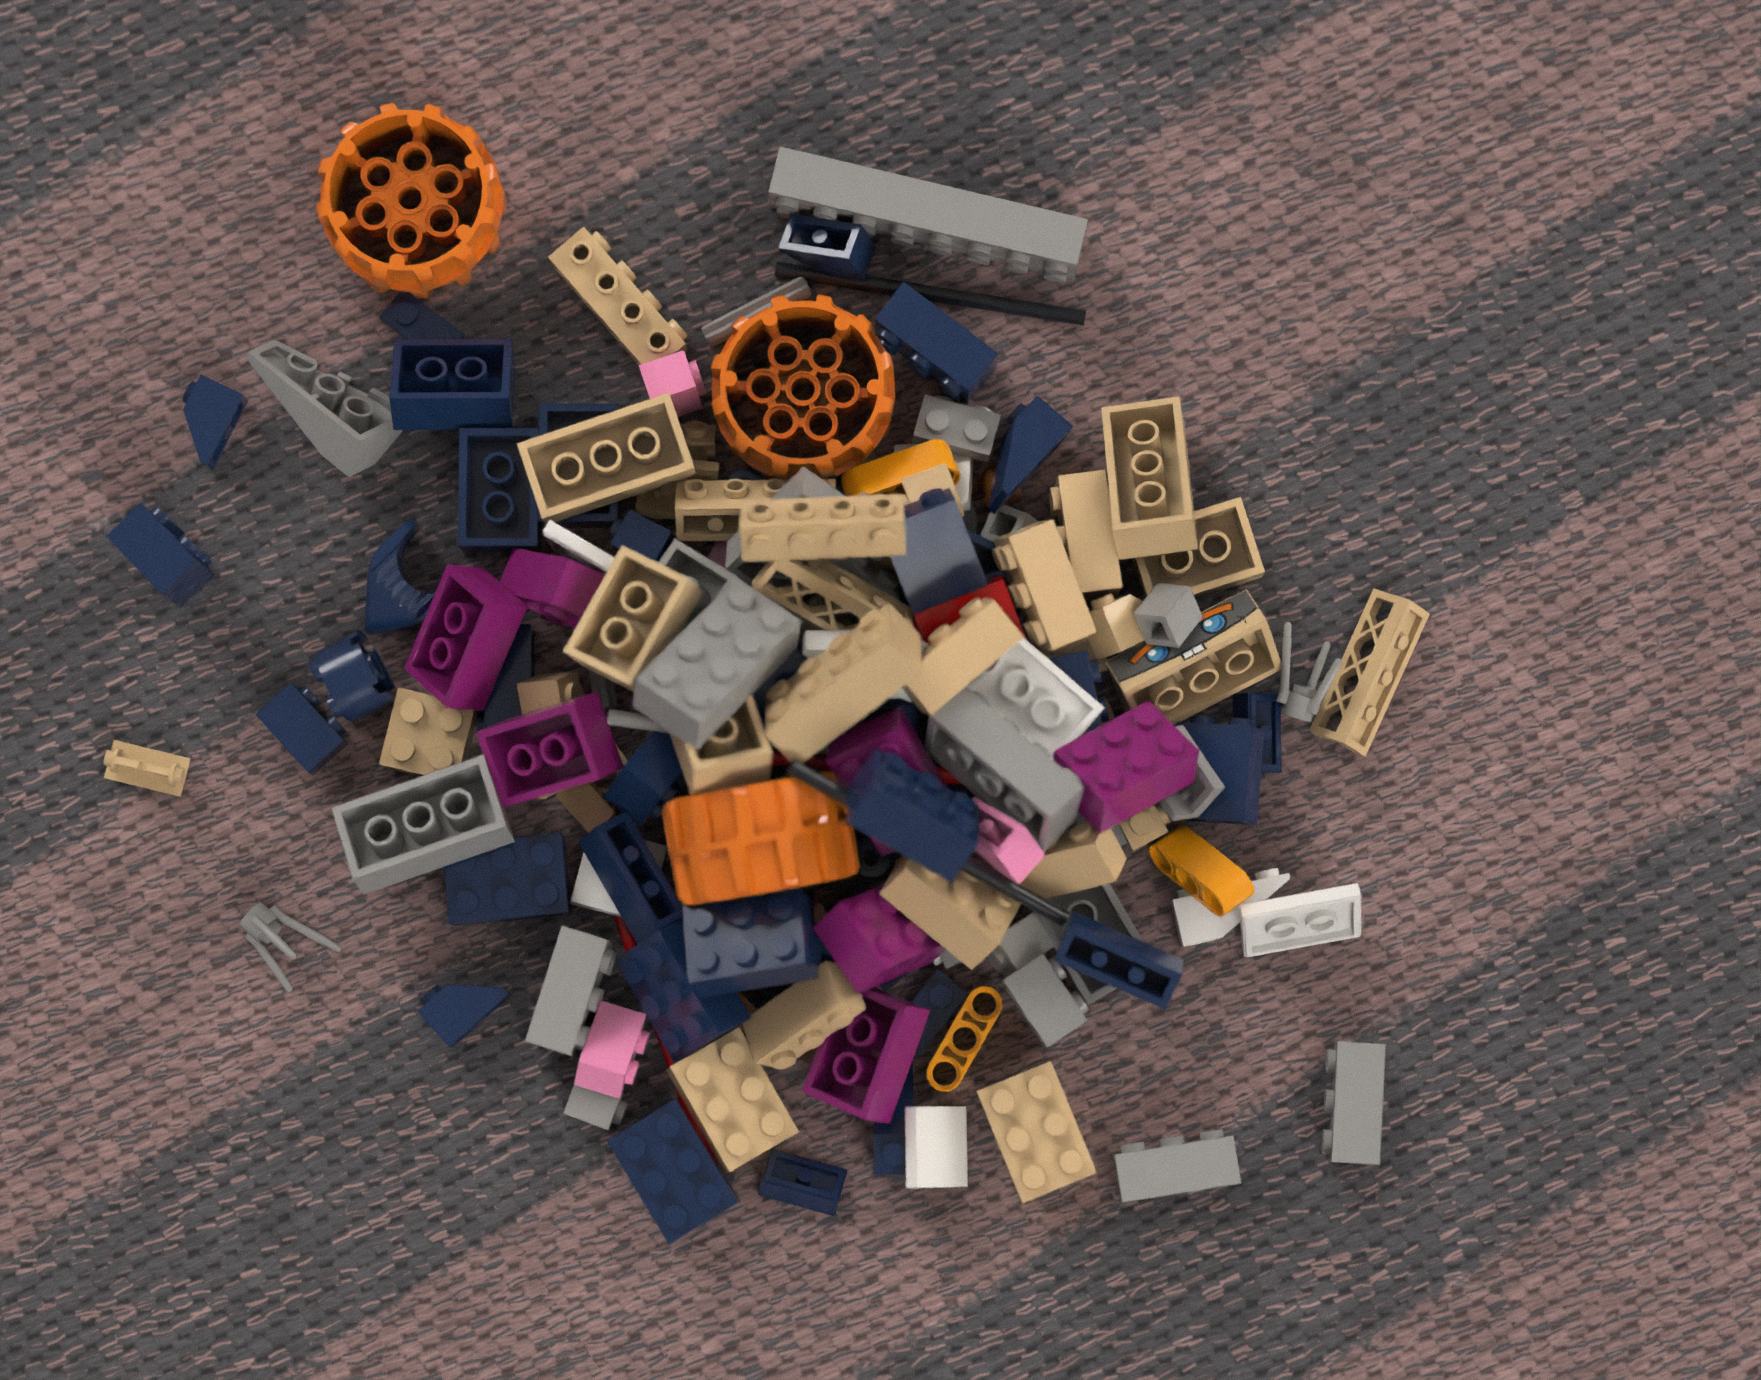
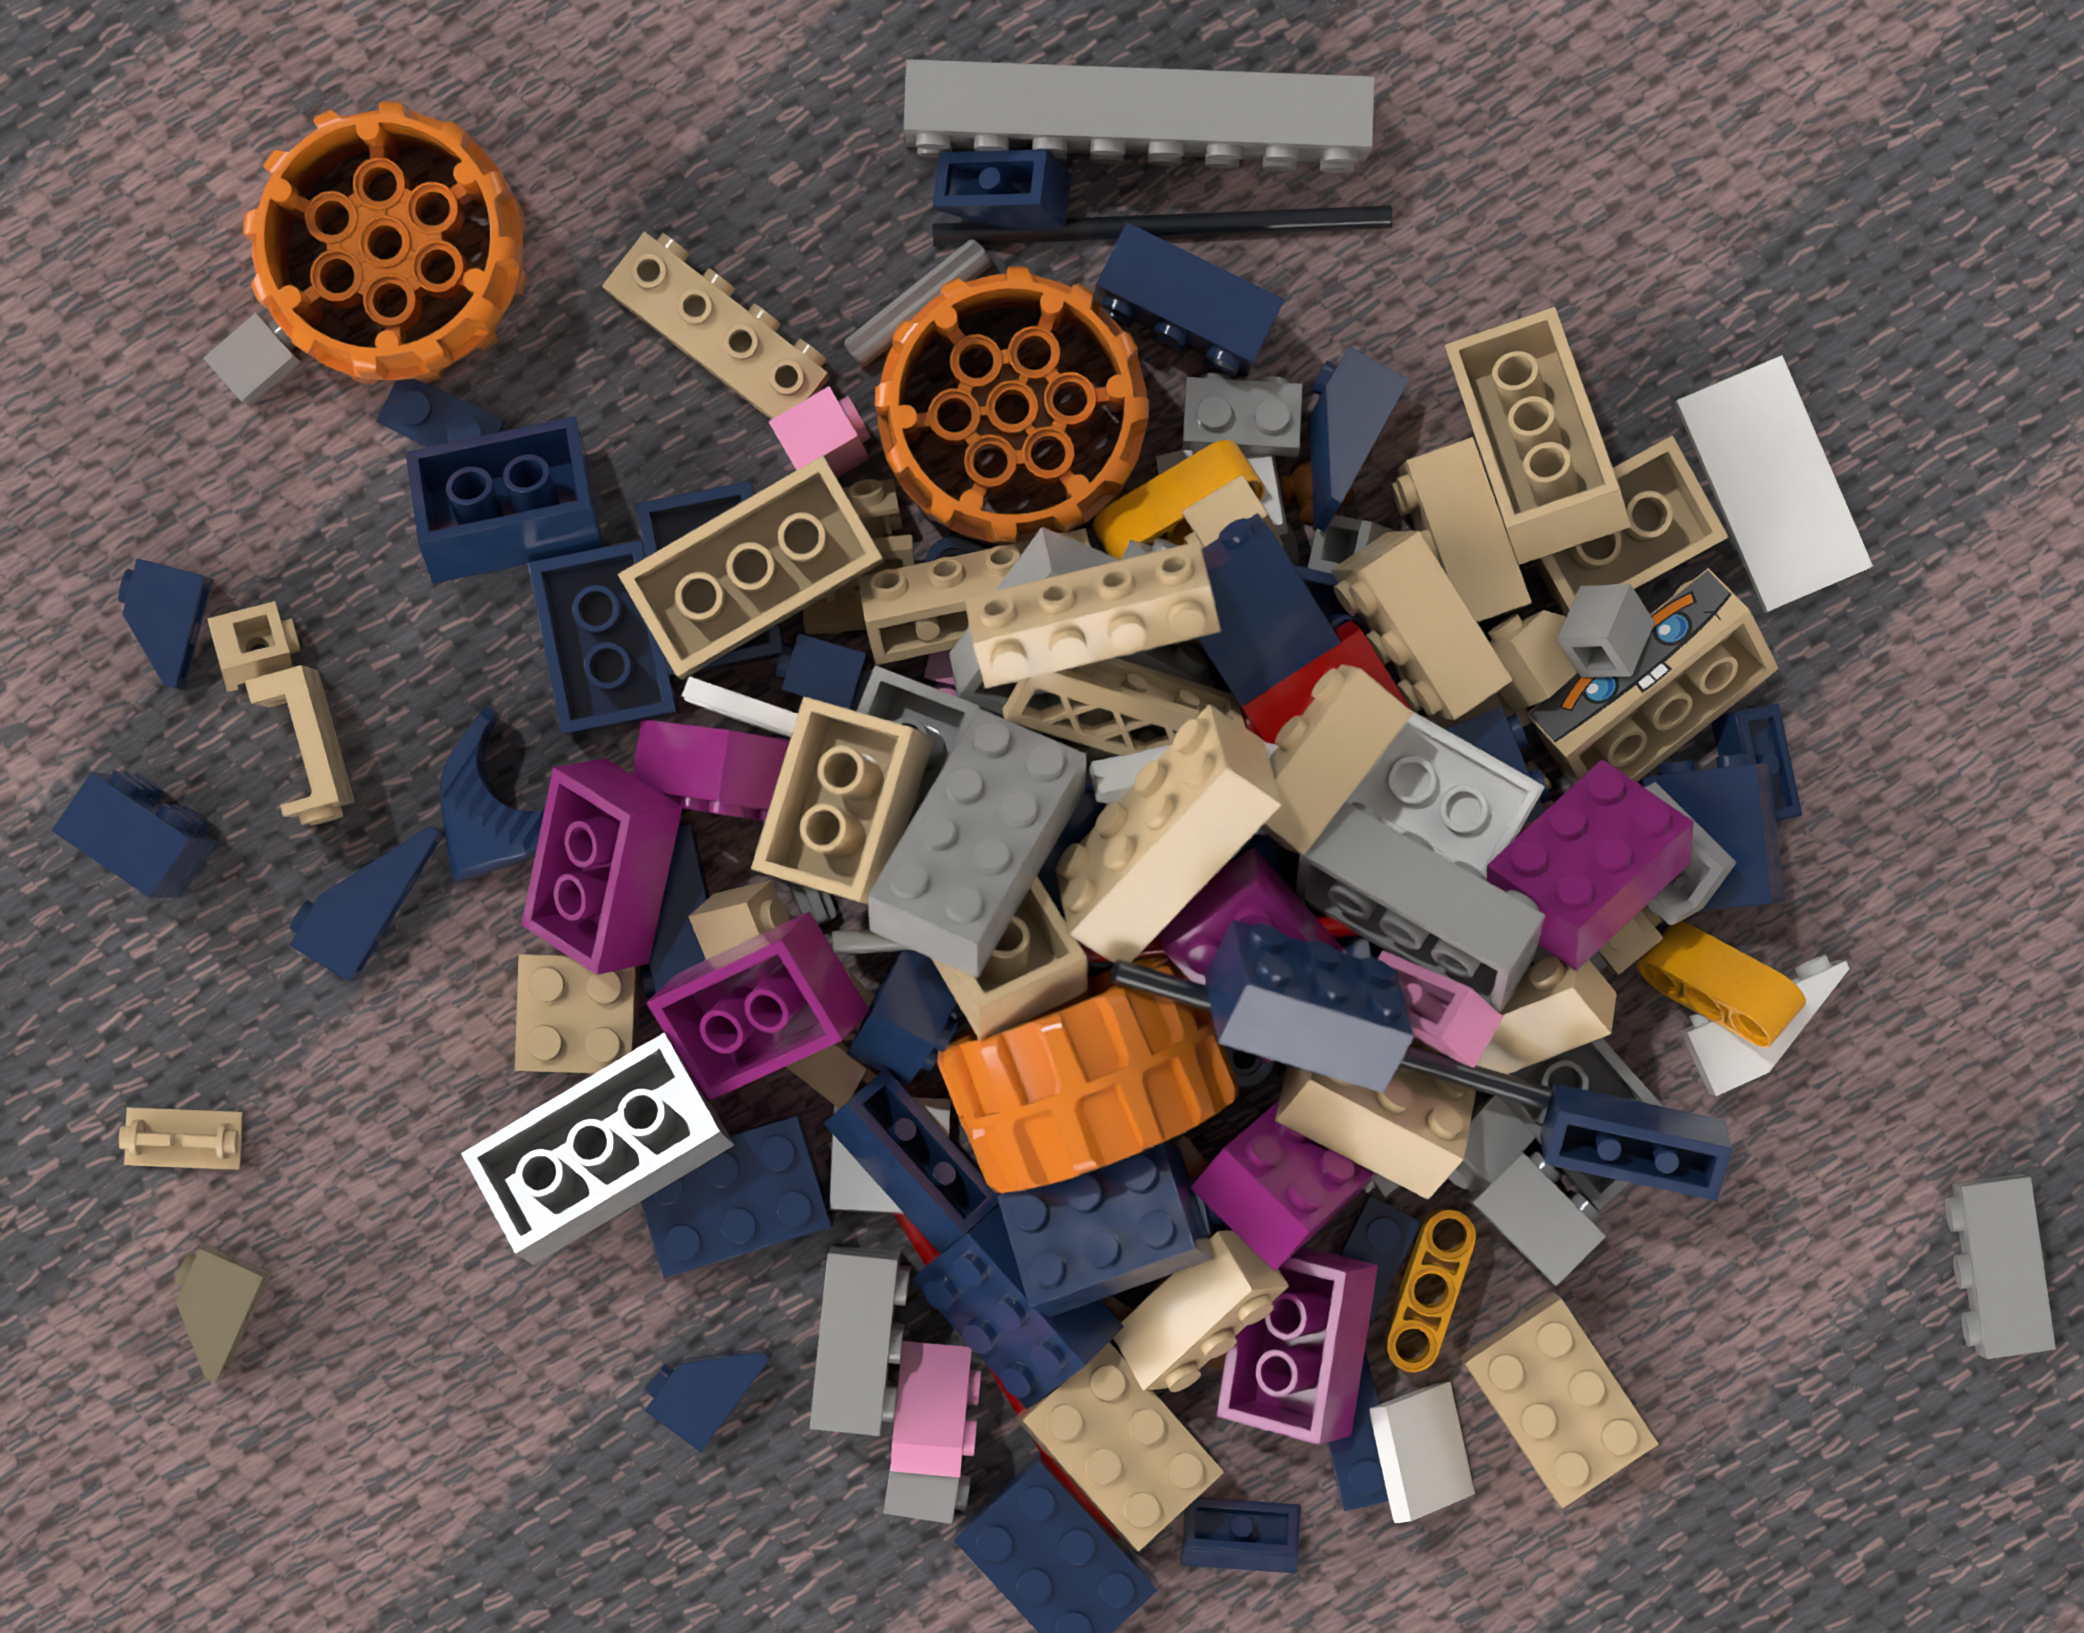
camera: 15 degrees left, 5 degrees up
(146, 884) = (218, 1305): none -> dark tan slope
(263, 926) = (398, 1333): light grey plant -> none
(265, 447) = (241, 630): none -> tan brick
(291, 484) = (316, 737): none -> tan panel
(294, 640) = (354, 914): none -> dark blue slope
(303, 728) = (394, 1037): dark blue brick -> none
(307, 259) = (253, 358): none -> light grey brick
(338, 419) = (347, 579): light grey wedge -> none
(353, 677) = (451, 952): dark blue brick -> none
(1176, 1166) = (1766, 1408): light grey brick -> none
(1300, 920) = (1876, 1025): white tile -> none
(1304, 700) = (1812, 709): light grey plant -> none
(1305, 546) = (1773, 484): none -> white tile
(1376, 673) = (1917, 651): tan fence -> none

